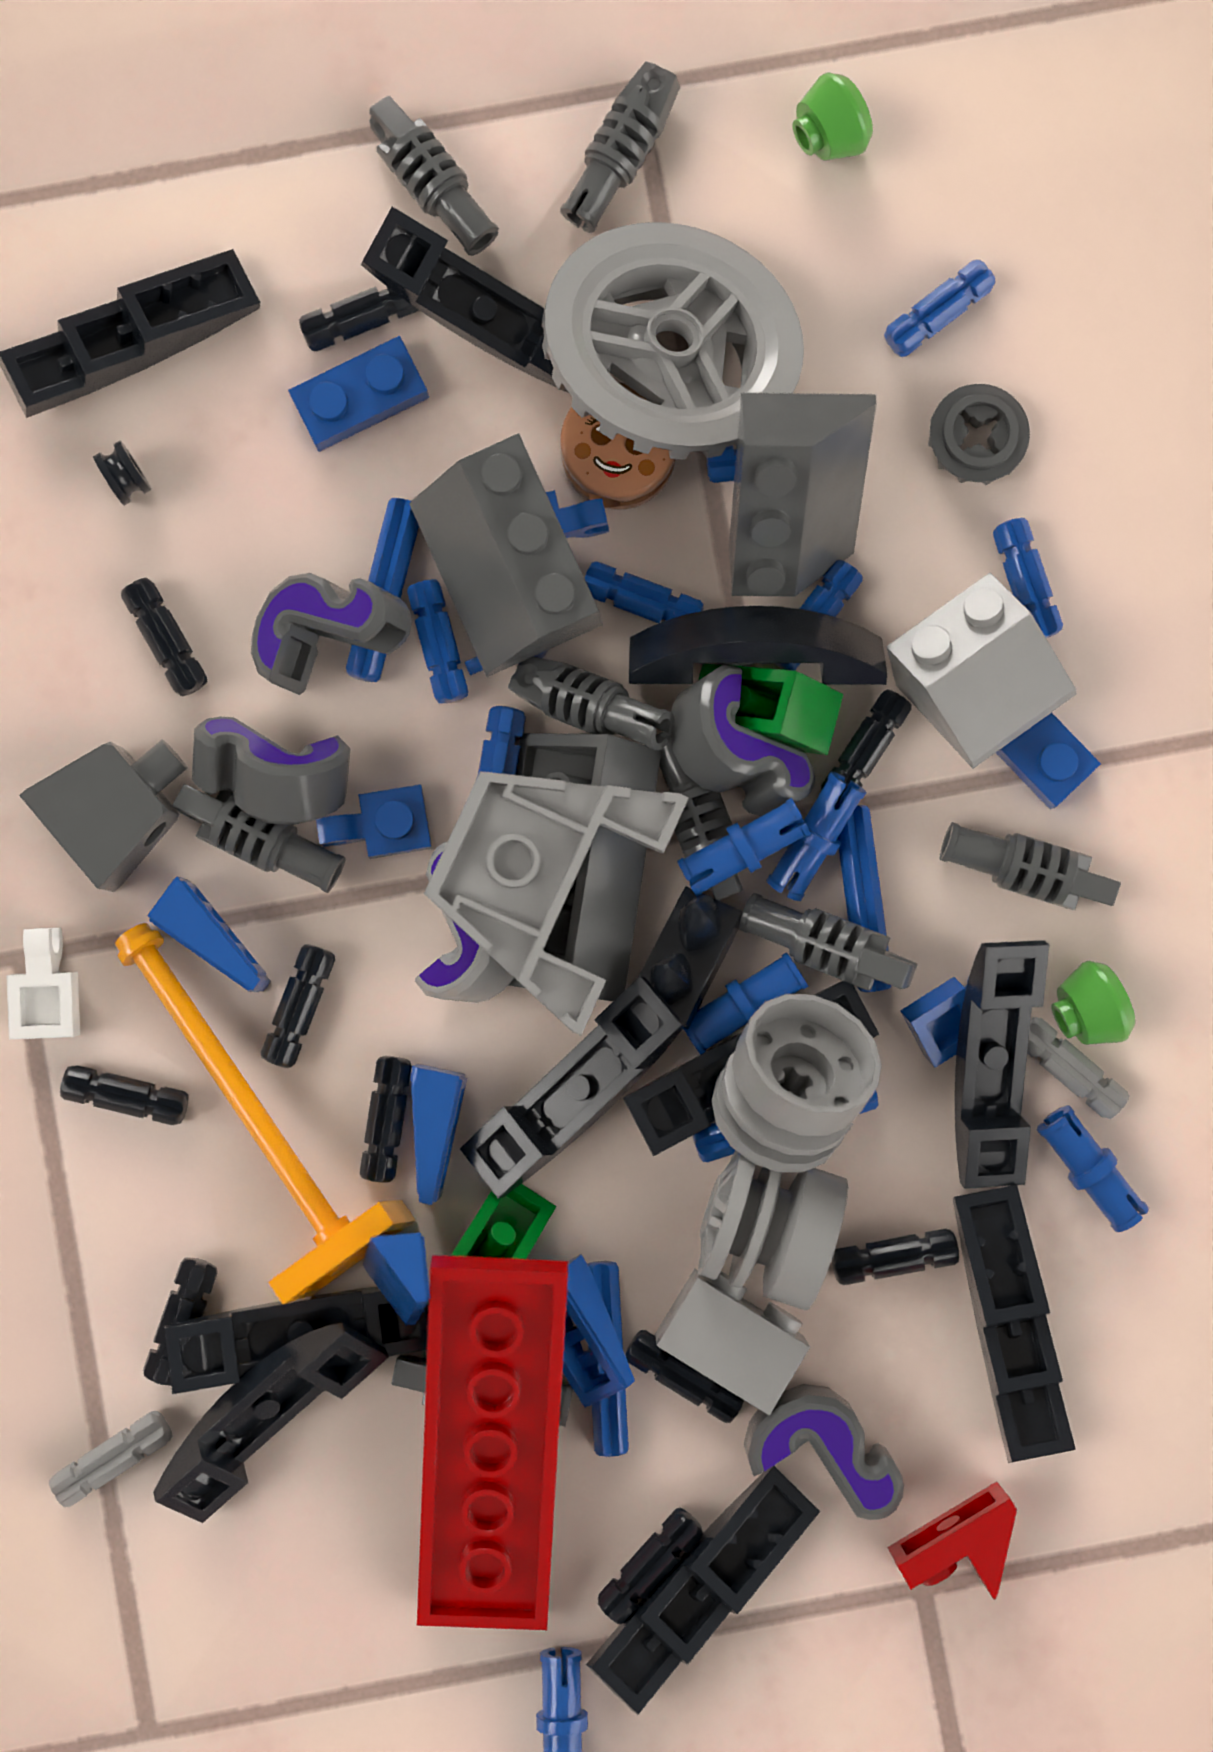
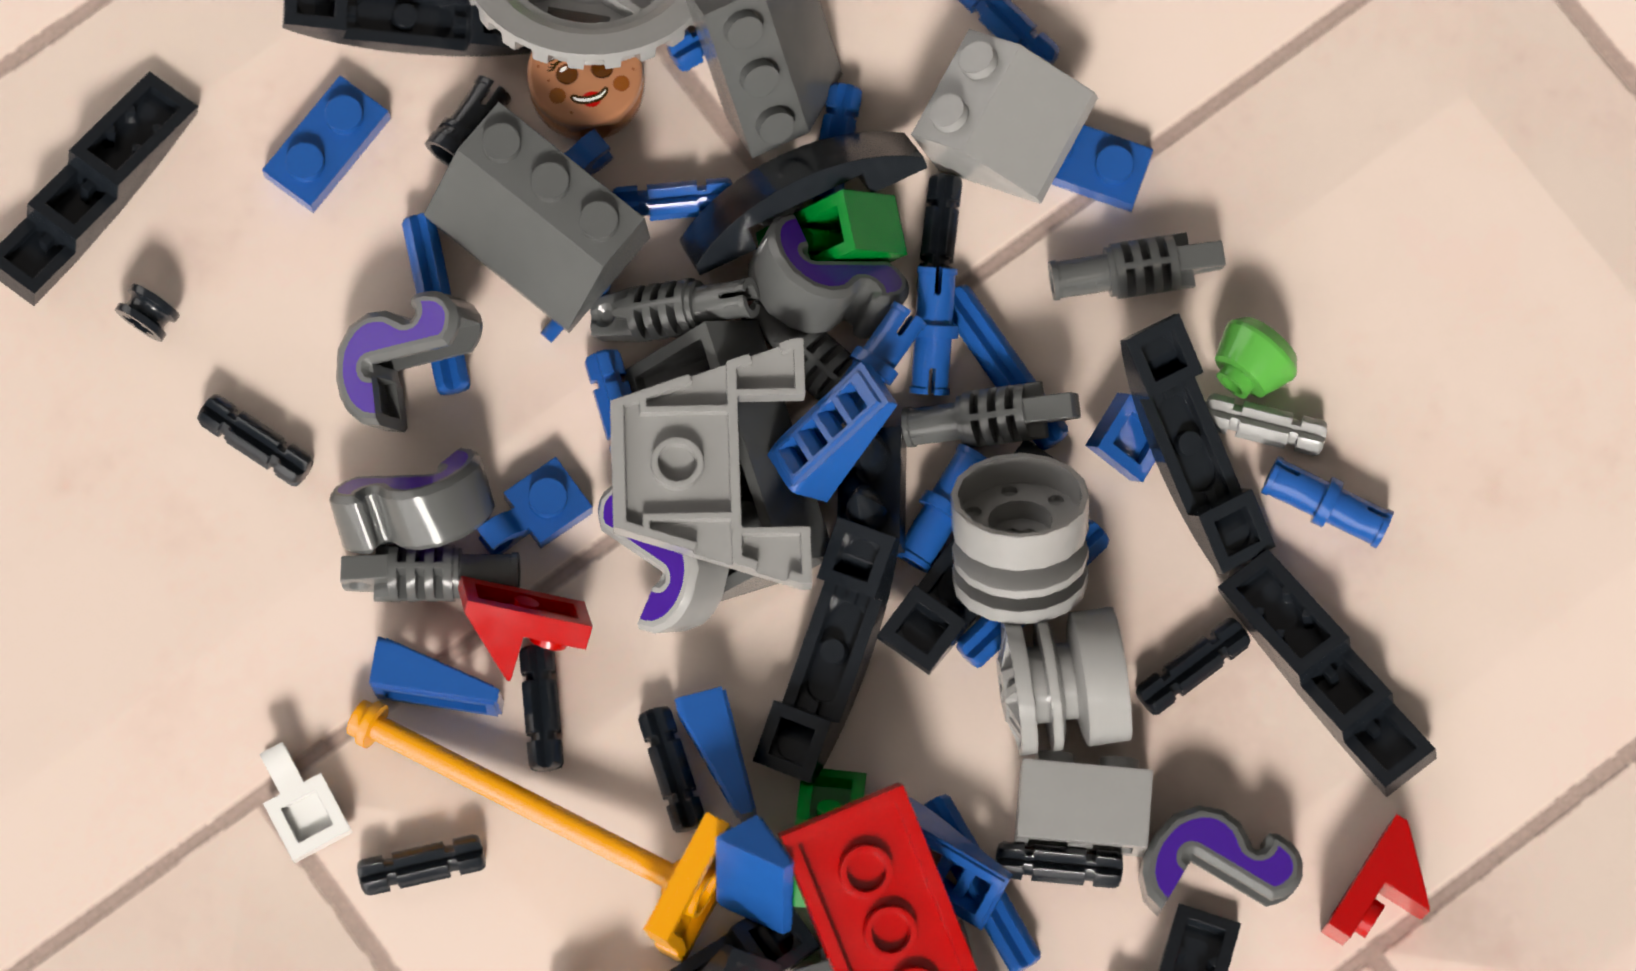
camera: 25 degrees left, 10 degrees down
(108, 808) = (282, 612): dark grey torso -> none
(302, 912) = (509, 613): none -> slope
(352, 317) = (288, 79): black axle -> none
(437, 641) = (508, 326): blue axle -> none
(494, 429) = (455, 130): none -> black pin
(633, 901) = (817, 449): none -> blue slope

